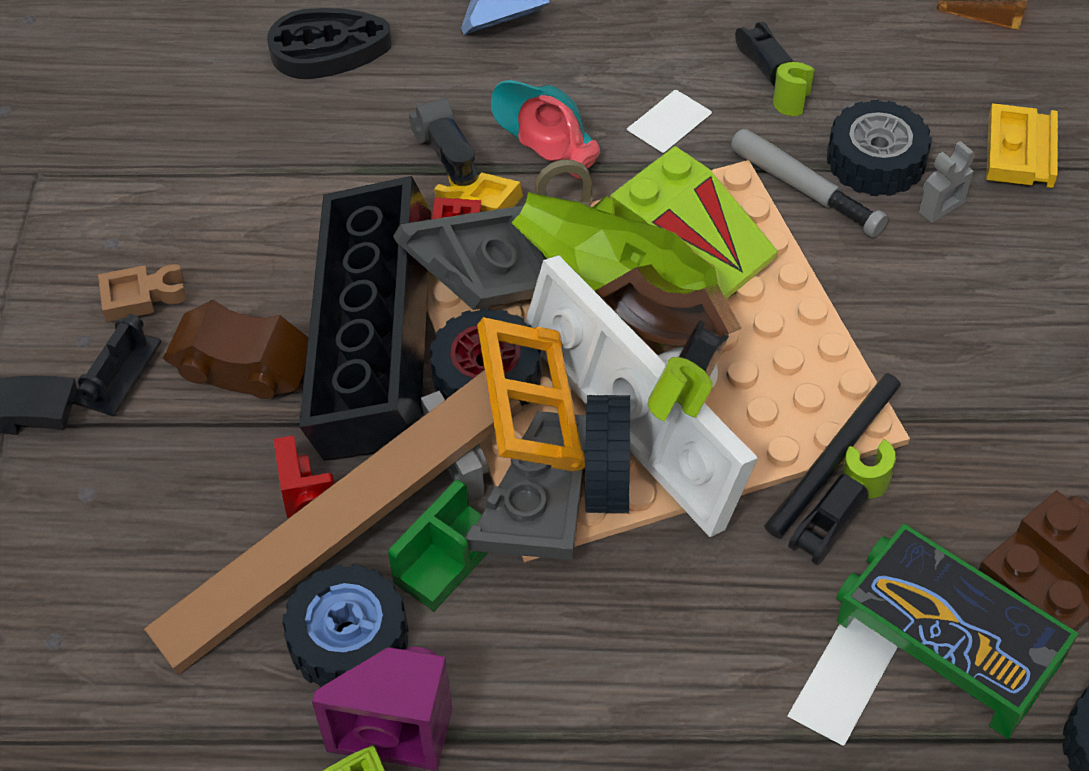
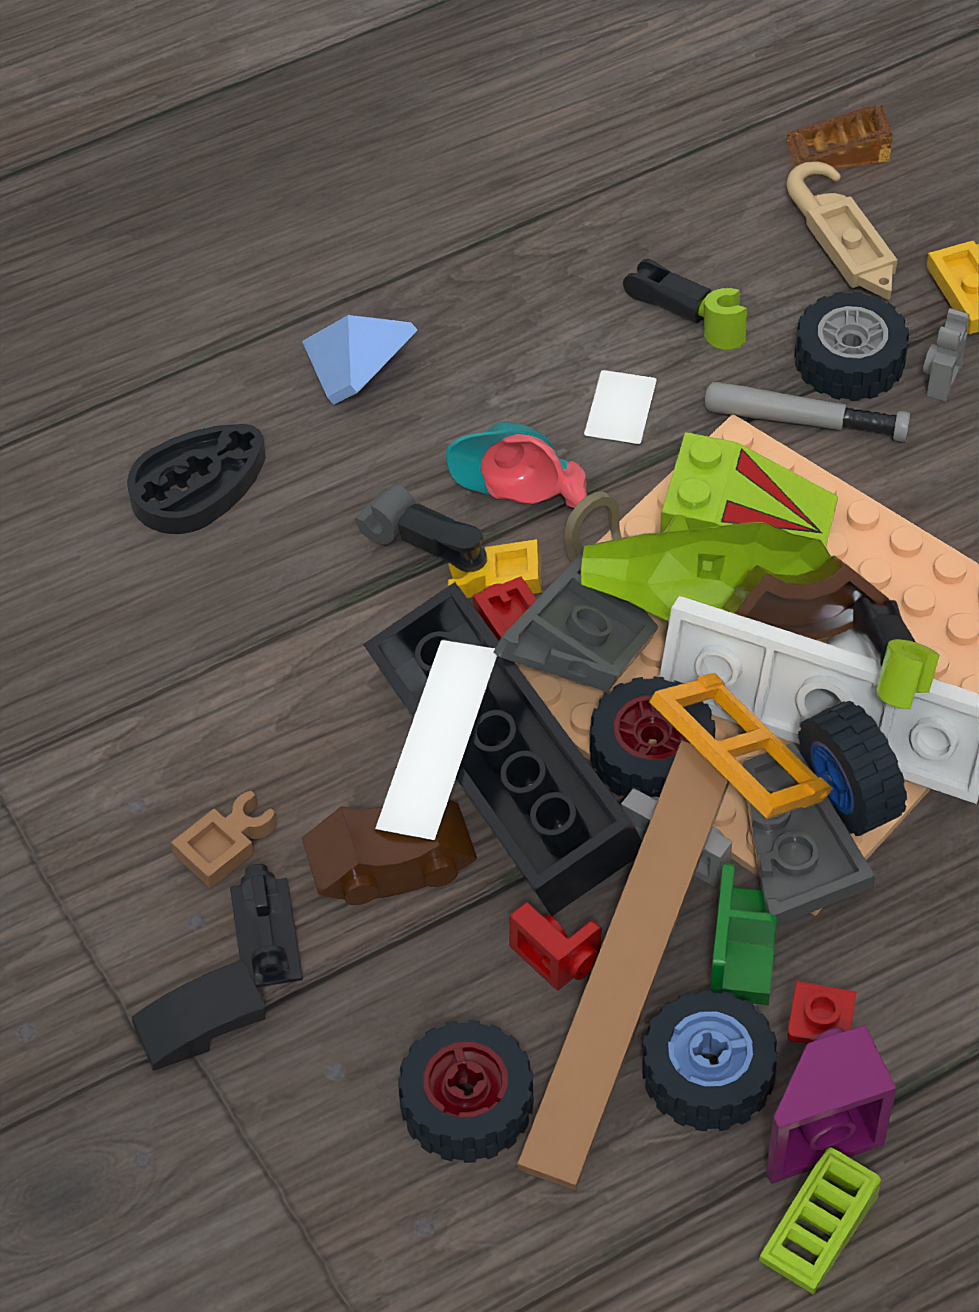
camera: 30 degrees left, 0 degrees up
(163, 577) = (440, 1111): none -> black wheel
(314, 284) = (437, 740): none -> white sticker
(448, 636) = (819, 1010): none -> red bracket
(937, 63) = (843, 231): none -> tan plate

